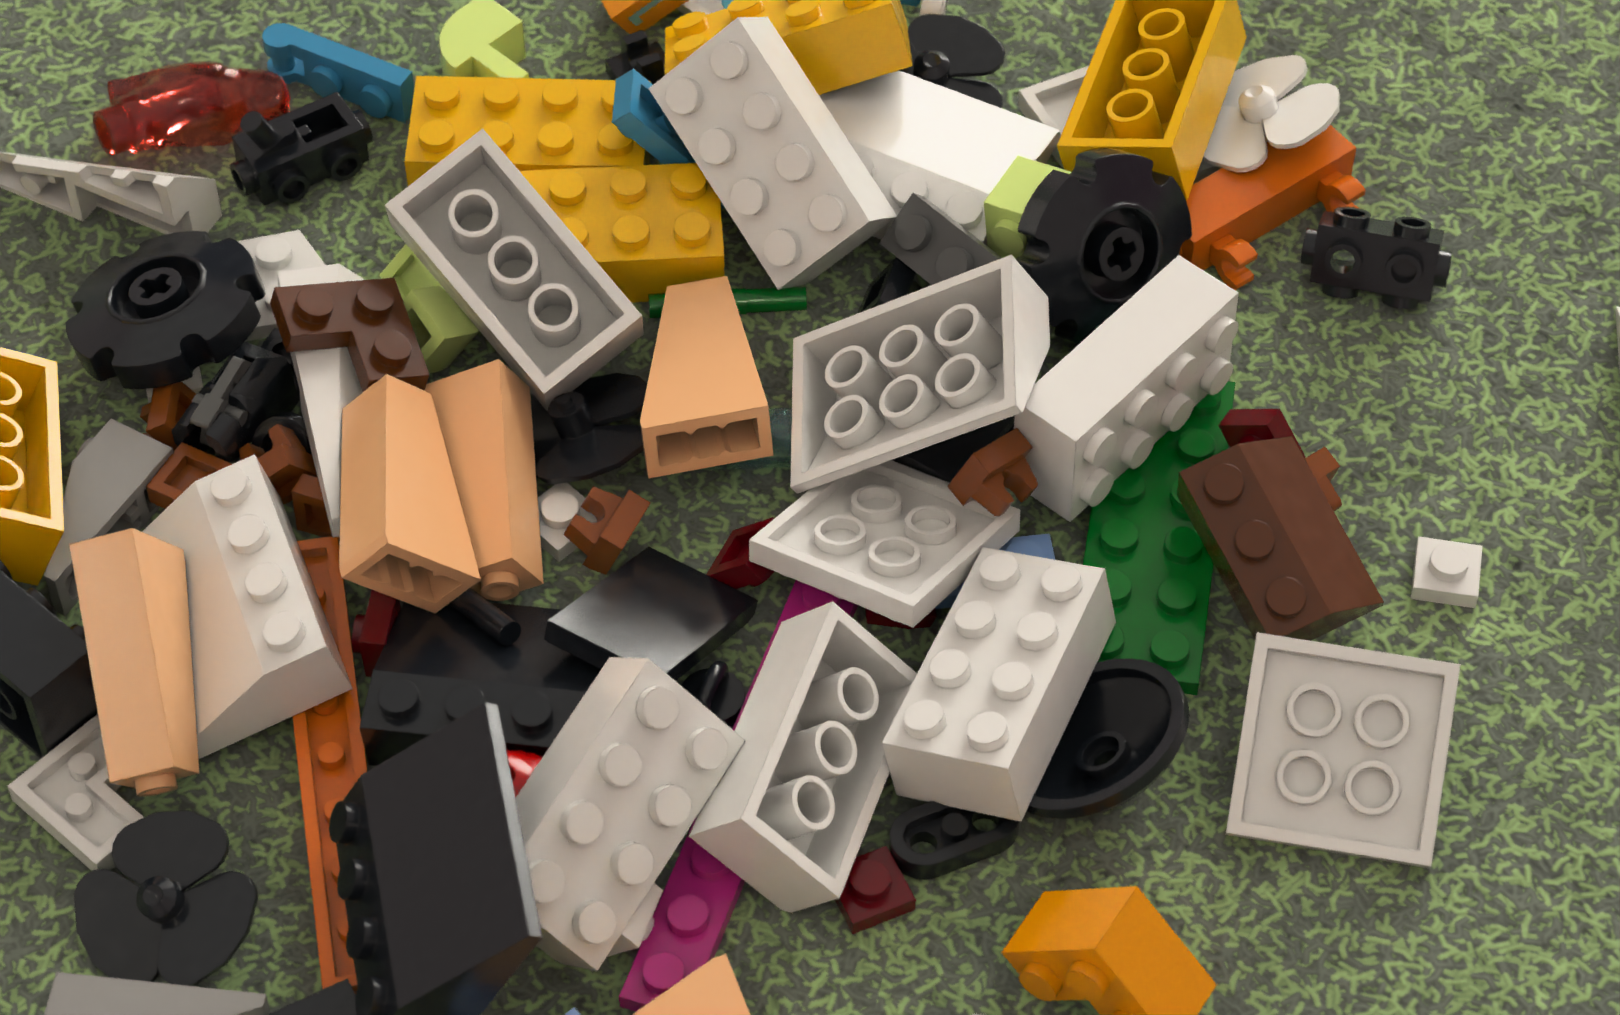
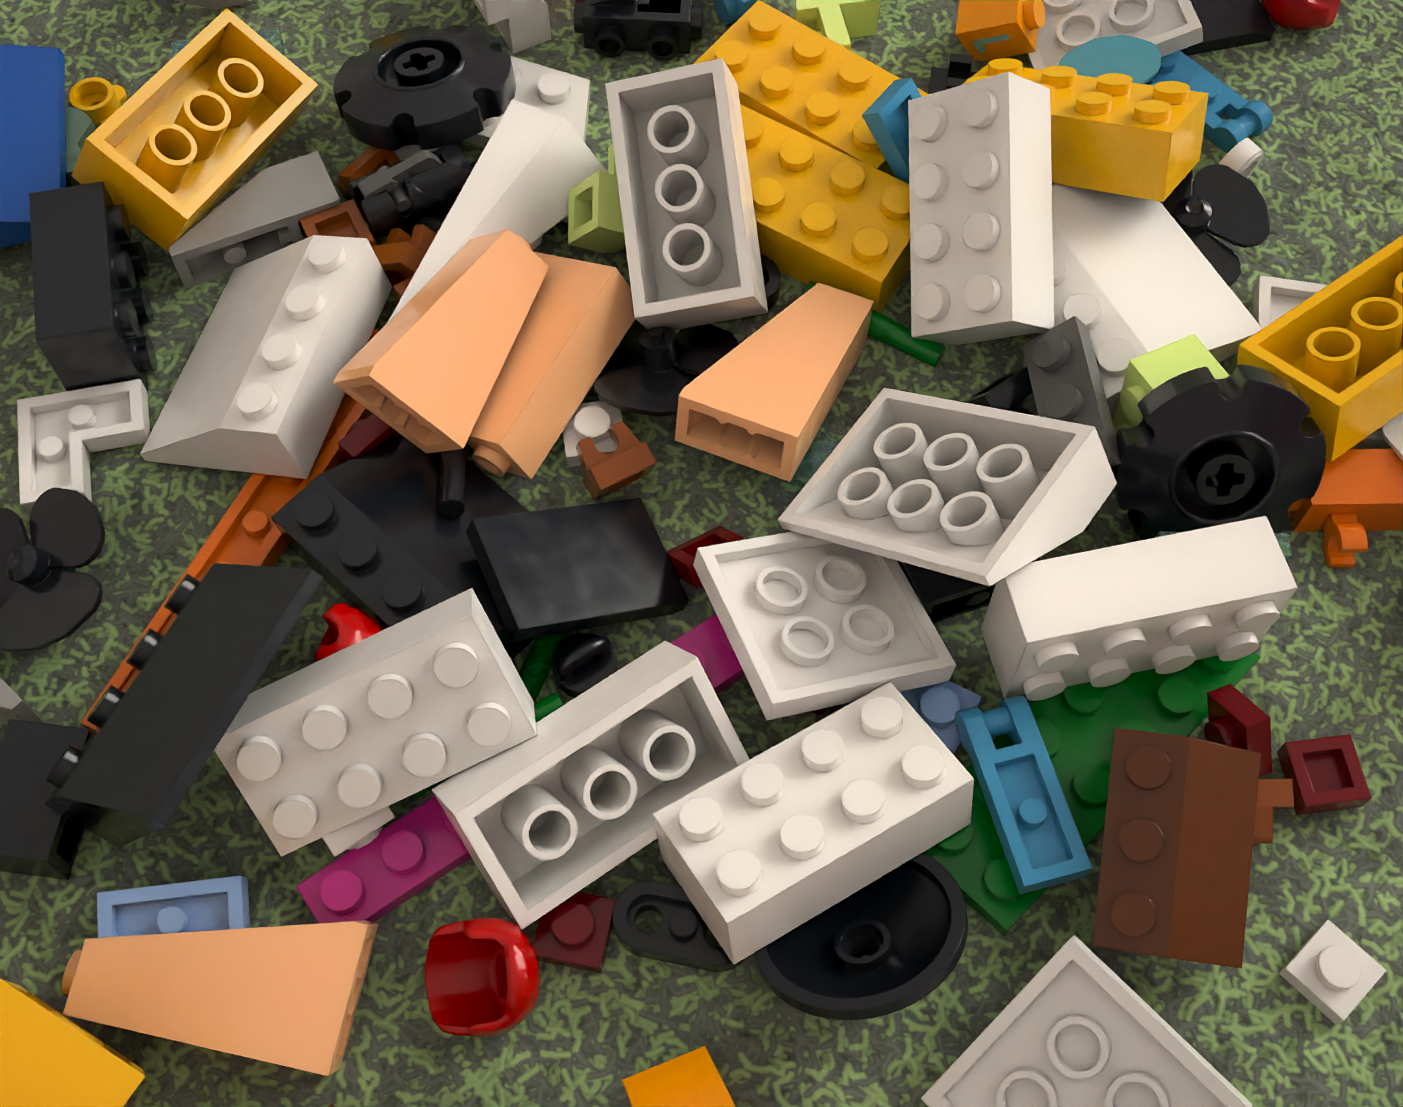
camera: 35 degrees right, 10 degrees up
(139, 657) = (152, 354): light nougat slope -> none
(354, 315) = (538, 168): reddish brown plate -> none
(832, 953) = (480, 977): none -> red hair
(993, 469) = (962, 612): dark orange tile -> none
(1143, 573) = (1023, 795): none -> dark azure plate
(1346, 434) = (1324, 774): none -> dark red plate

